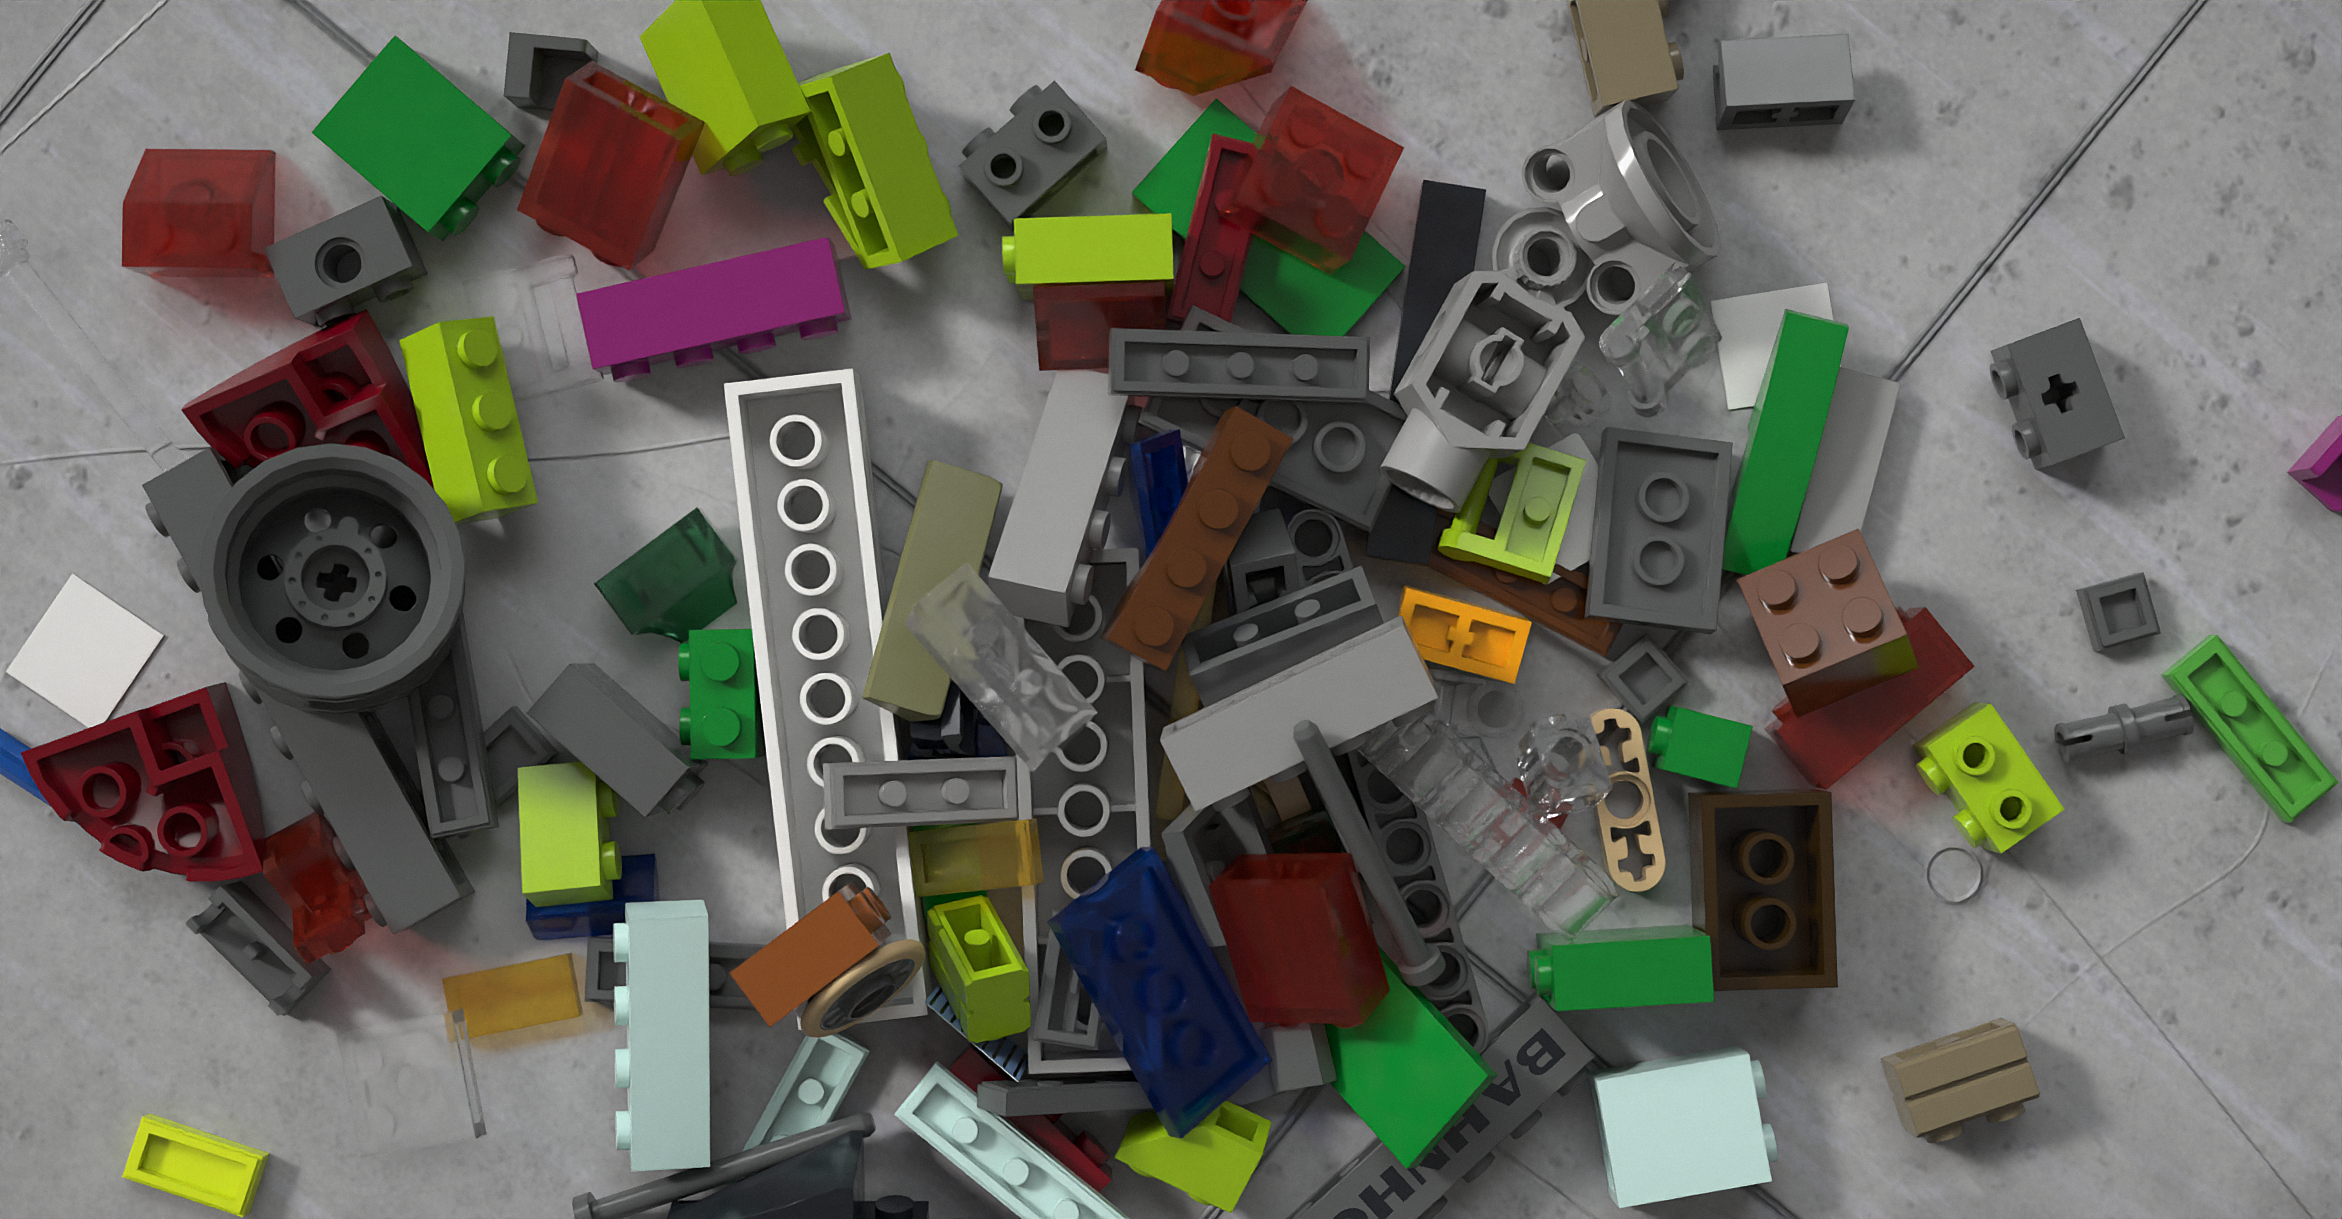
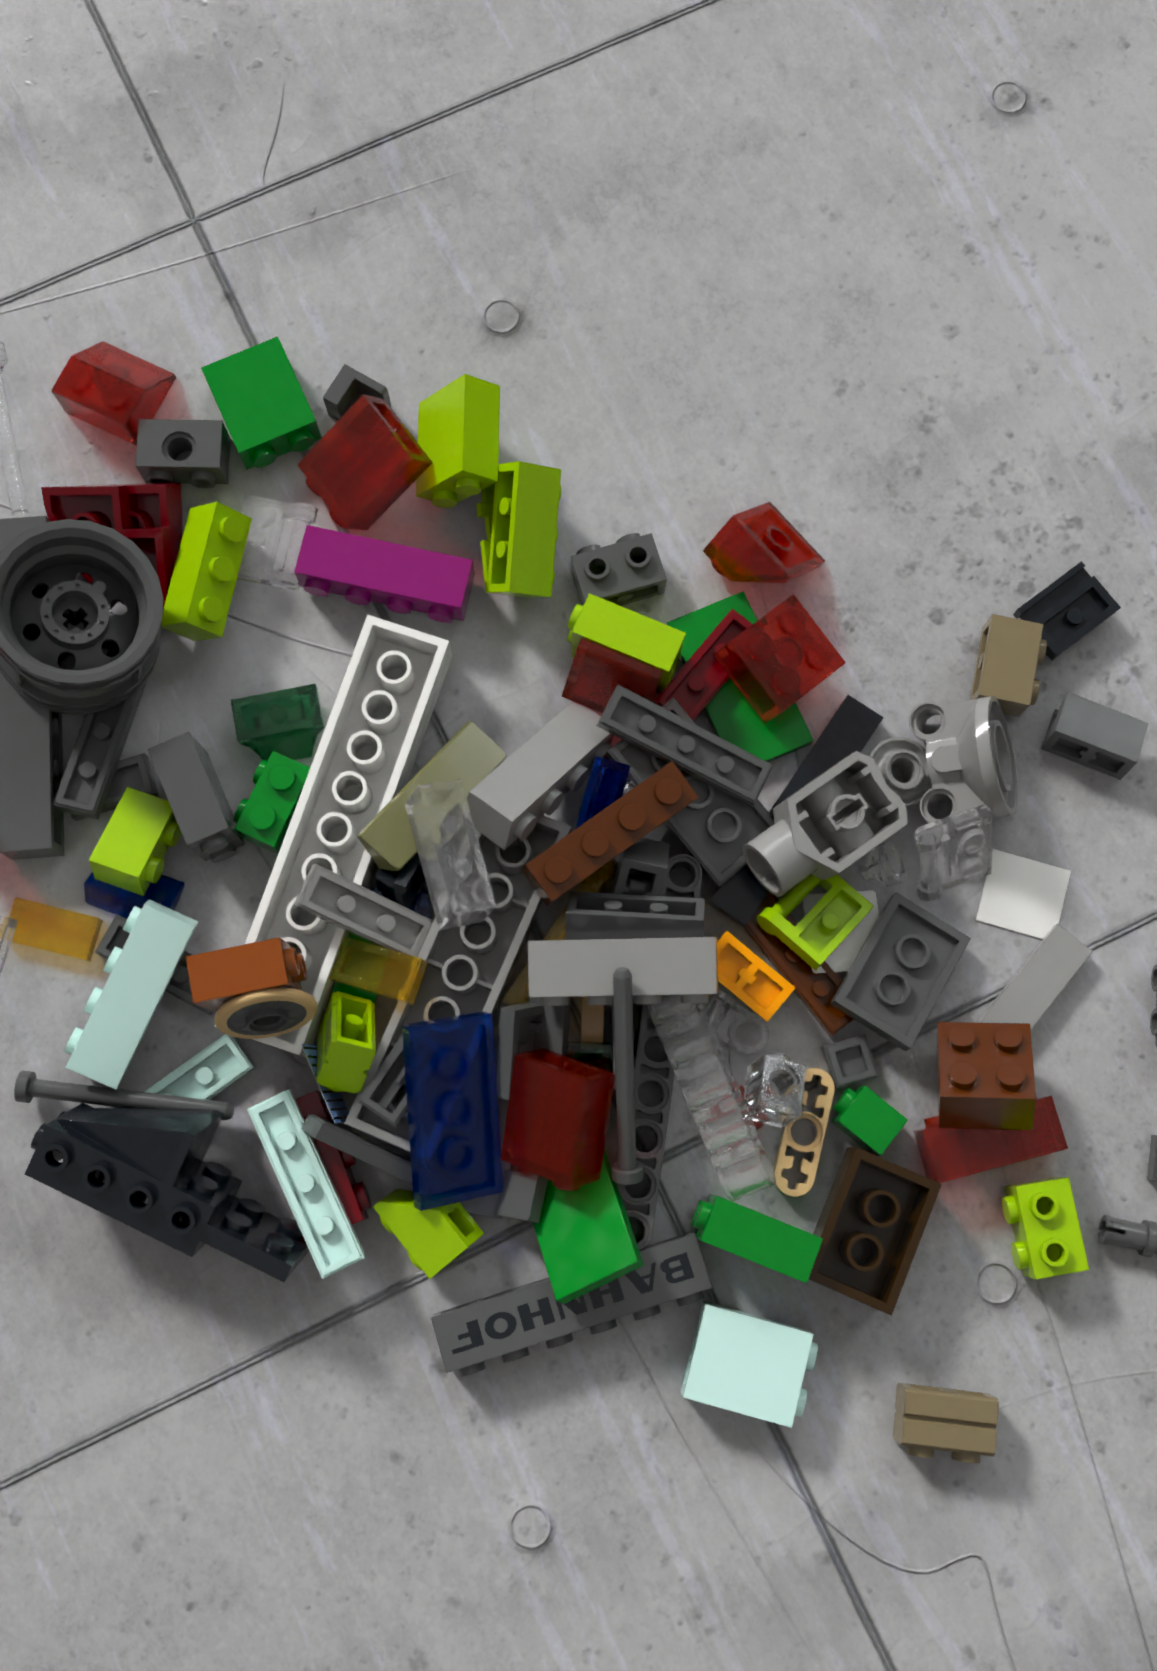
camera: 20 degrees right, 10 degrees down
(1782, 441) = (1003, 951): green slope -> none

